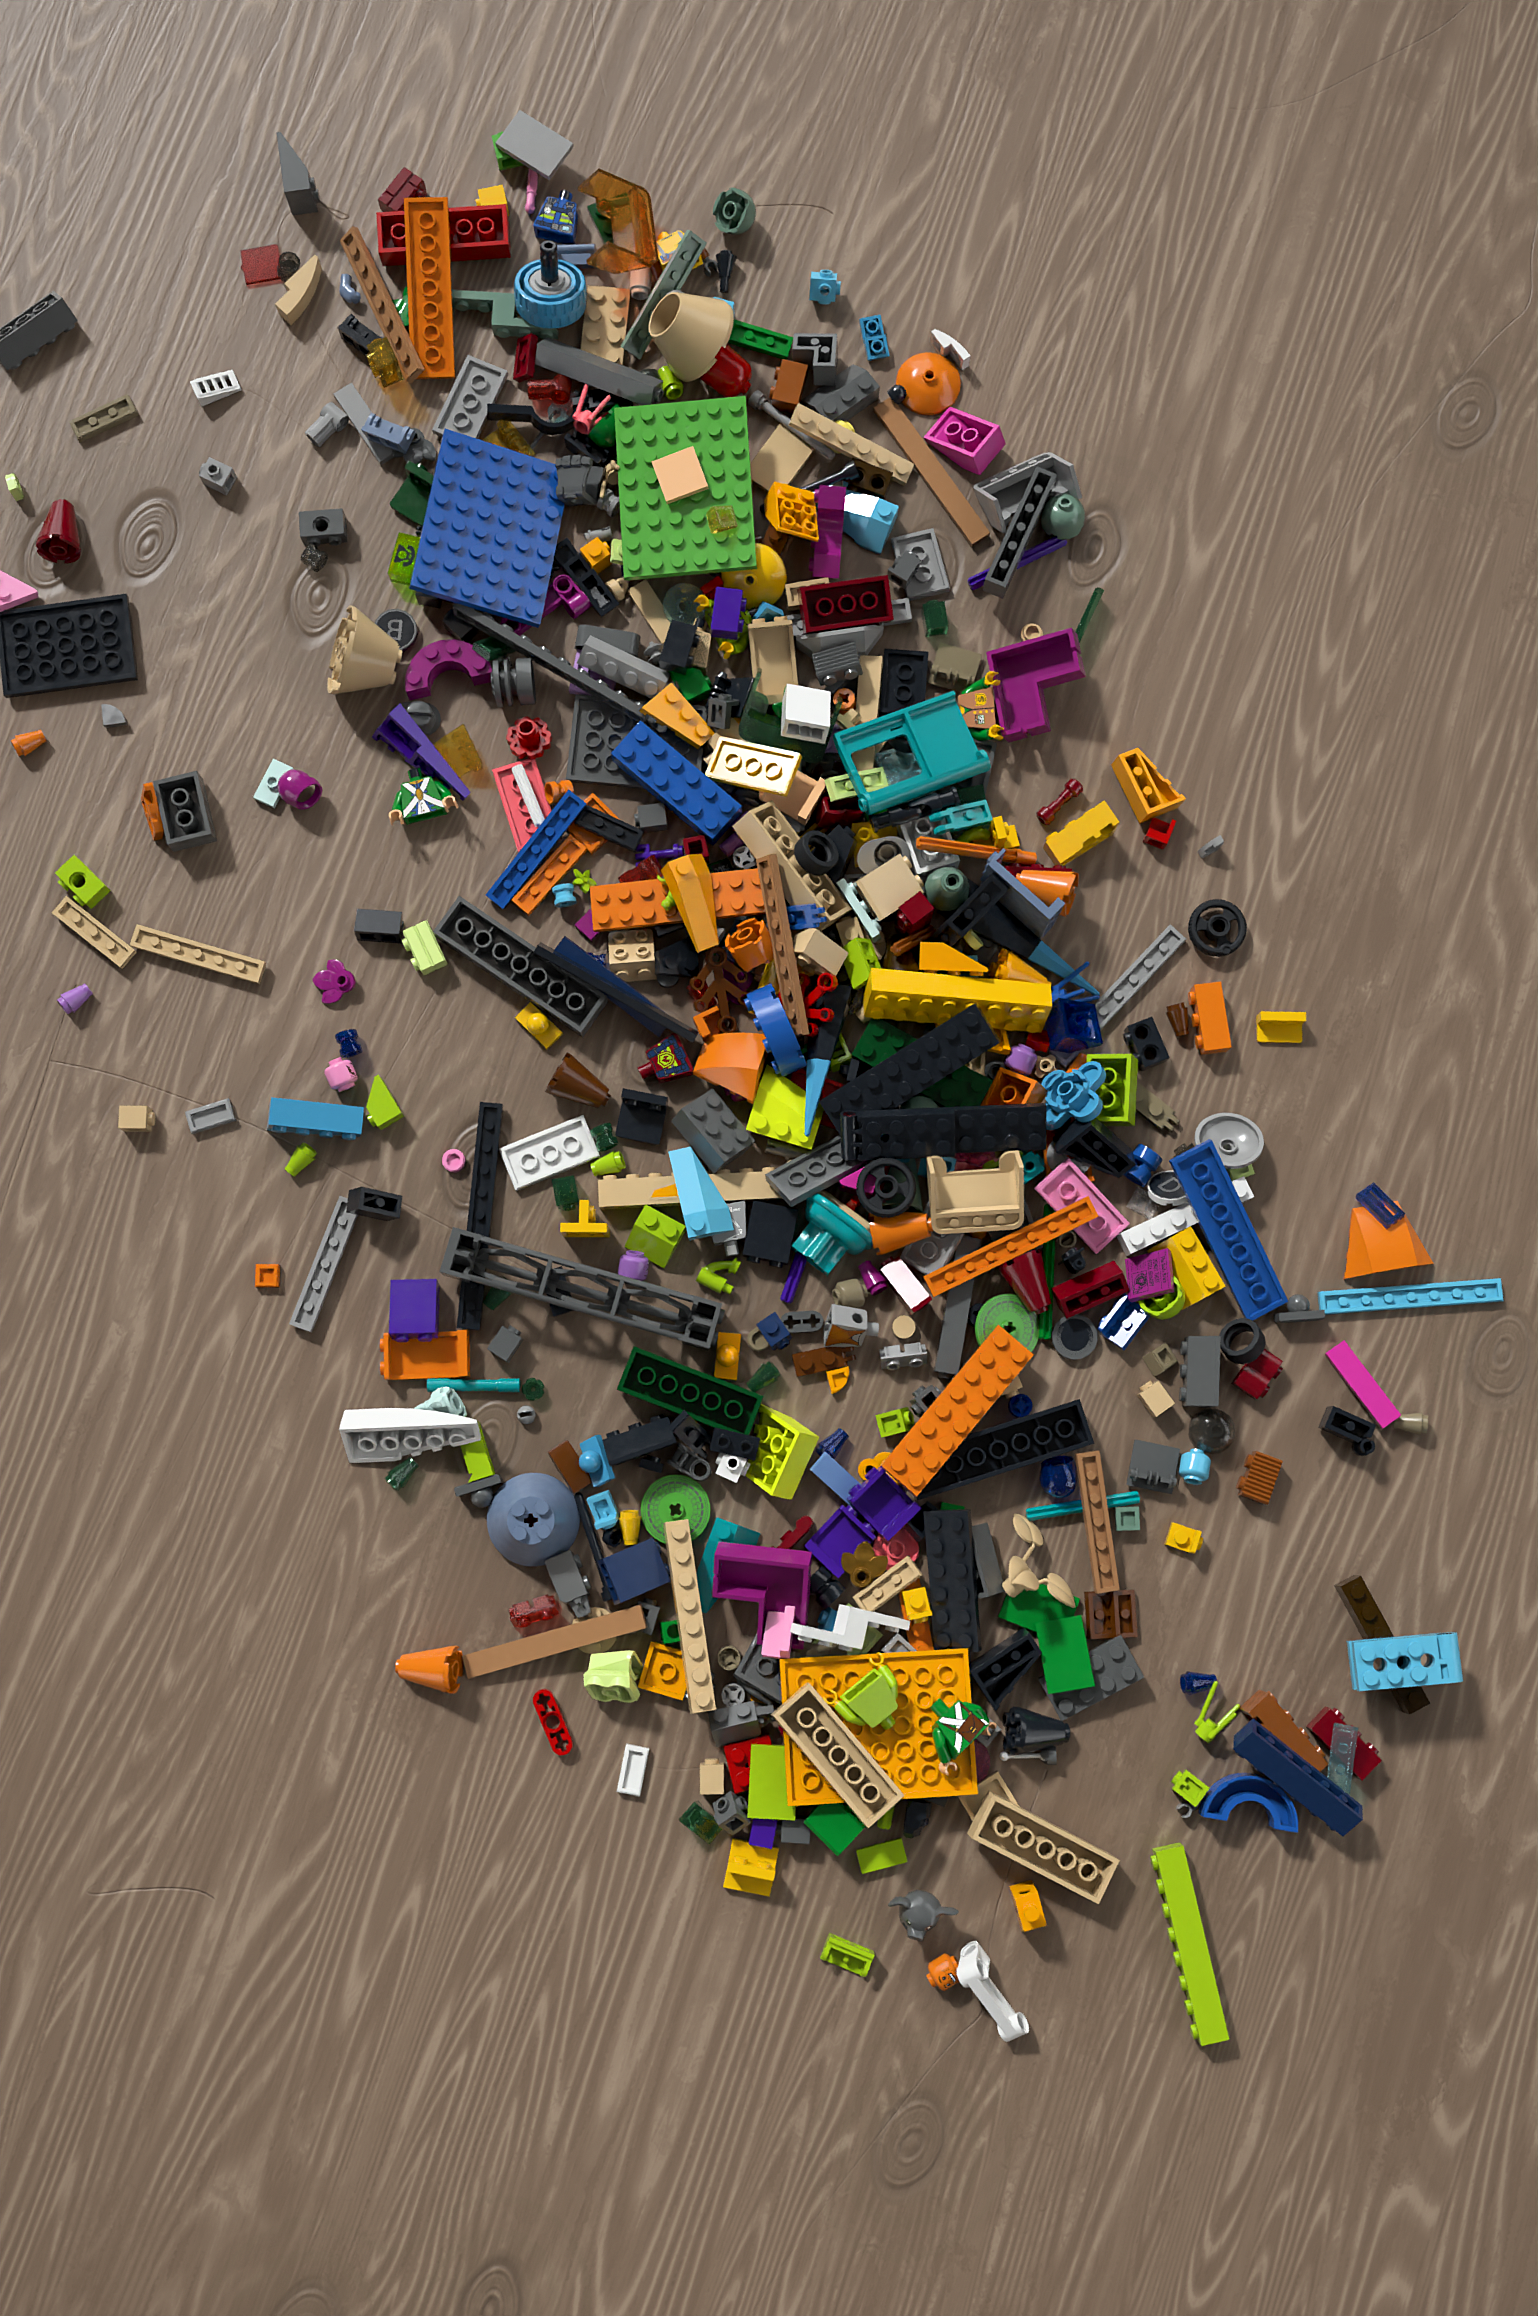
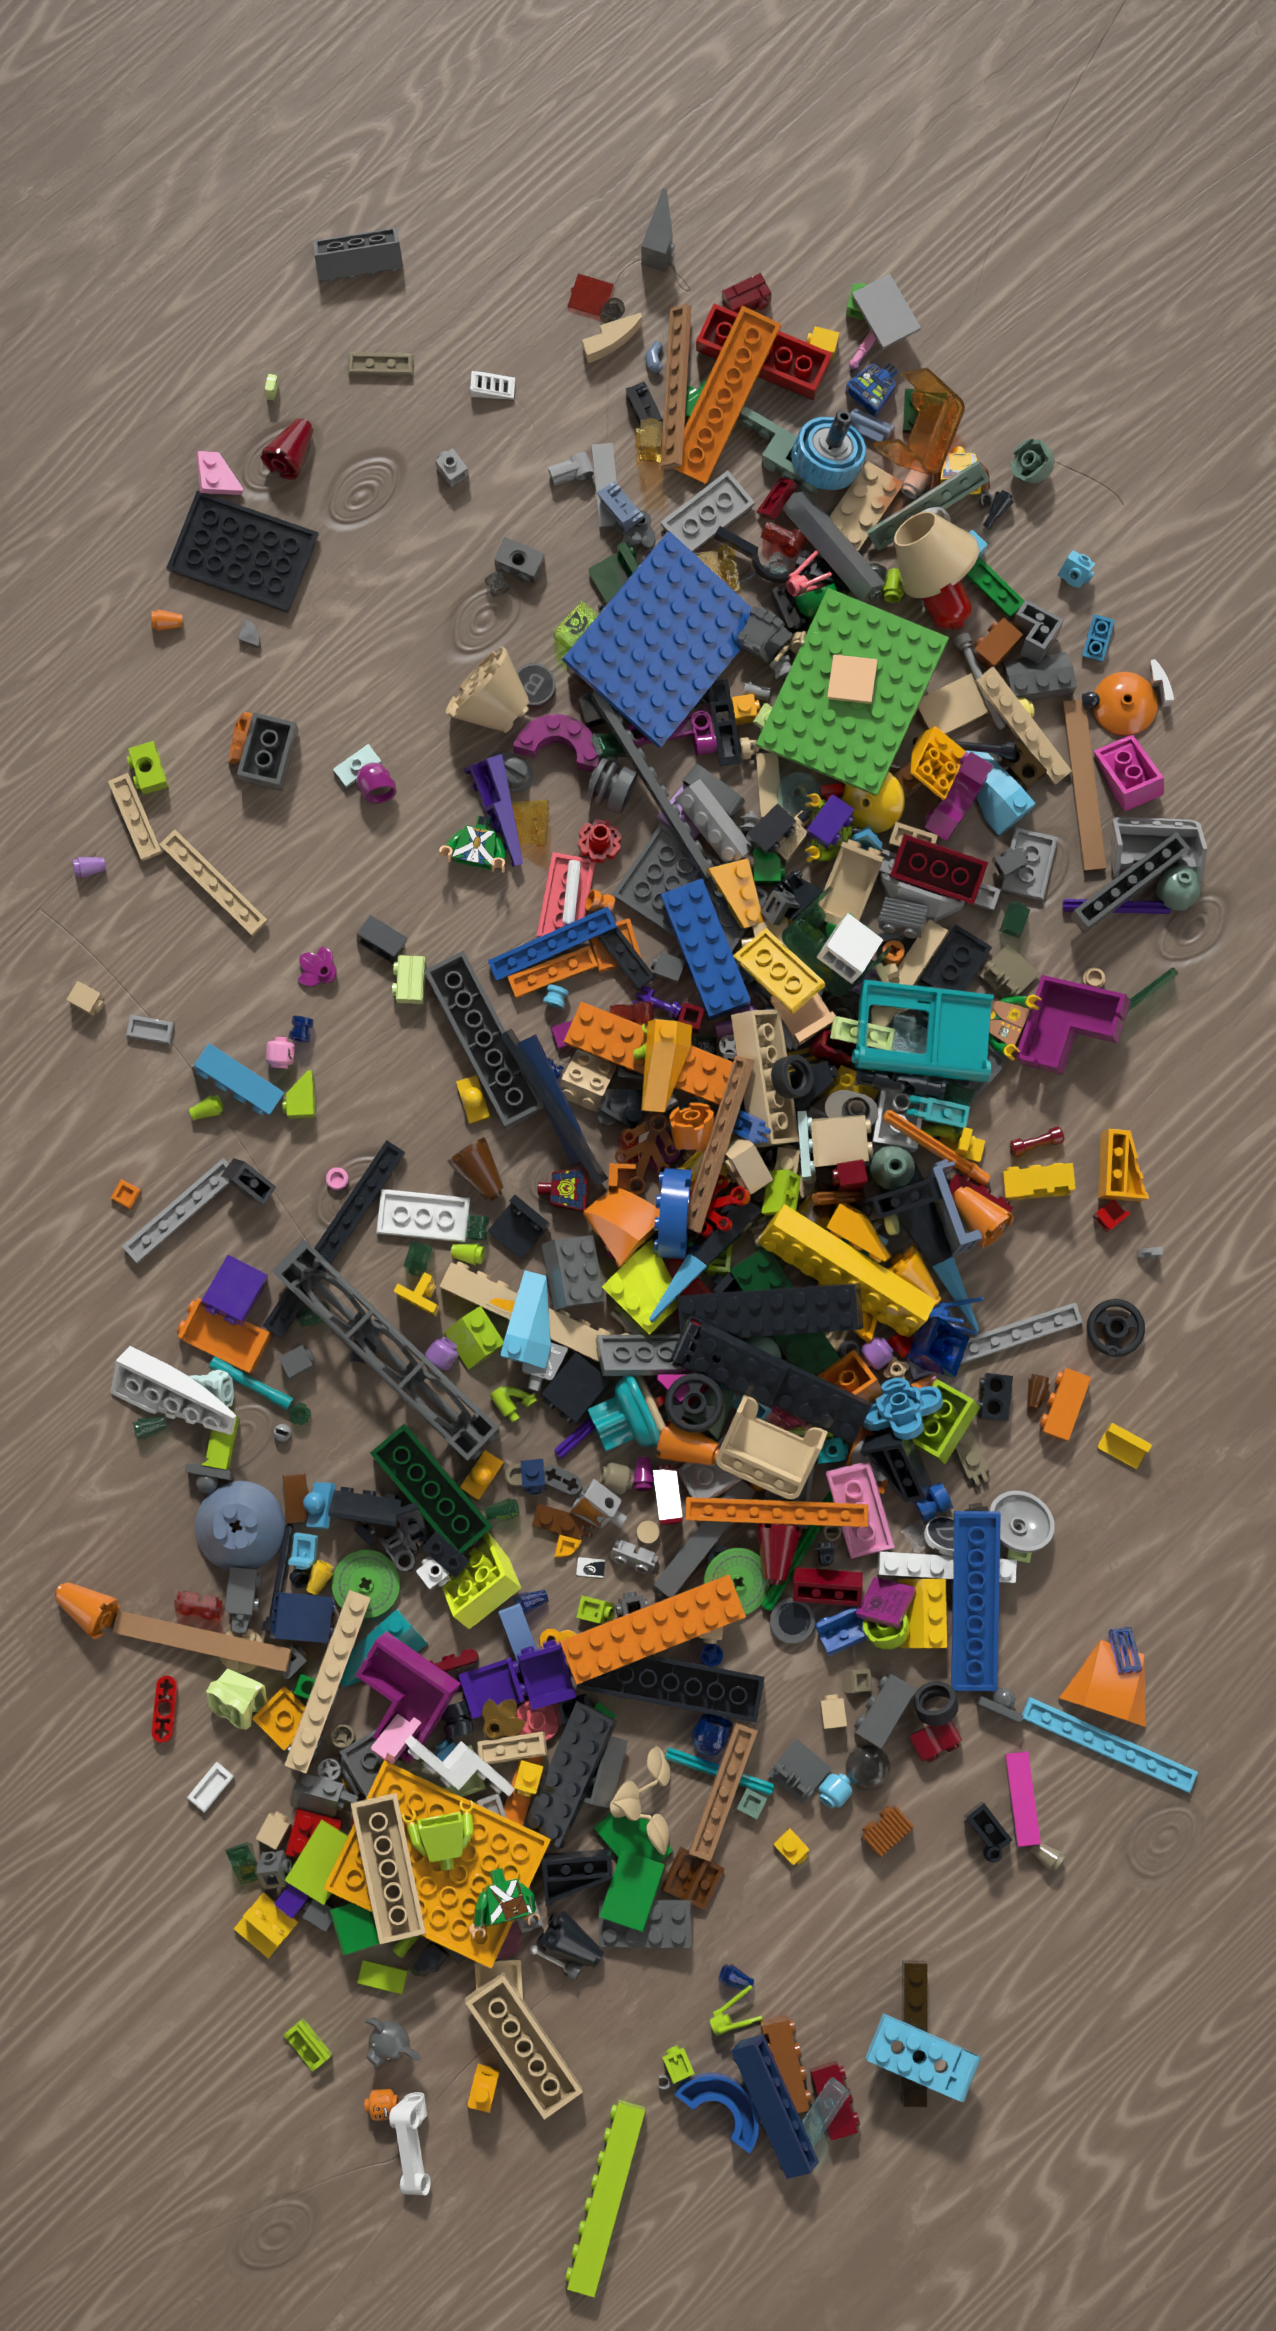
camera: 30 degrees right, 0 degrees up
(583, 880) = (580, 992): lime plant -> none
(721, 518) = (868, 737): clear yellow slope -> none
(869, 1386) = (590, 1567): none -> sticker

